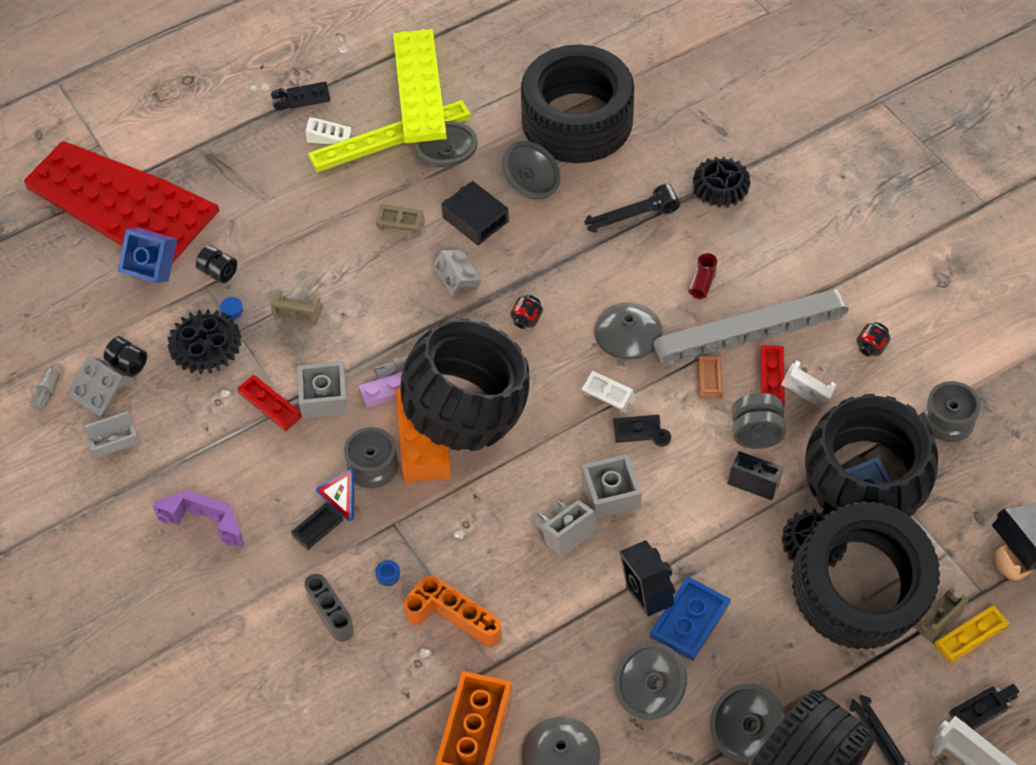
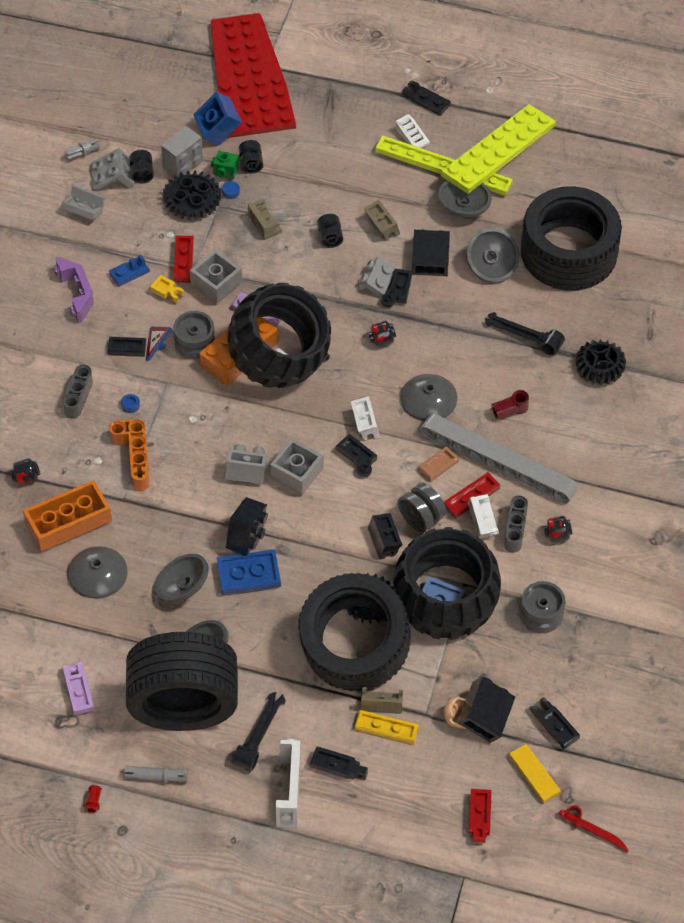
camera: 45 degrees right, 0 degrees up
(153, 311) = (182, 152): none -> light grey brick
(202, 289) = (225, 164): none -> green brick
(231, 457) = (129, 271): none -> blue plate
(285, 442) = (165, 287): none -> yellow plate
(370, 266) = (330, 230): none -> black wheel
(378, 728) = (25, 471): none -> black head
(487, 263) = (399, 288): none -> black hinge
(837, 366) = (516, 531): none -> dark grey beam

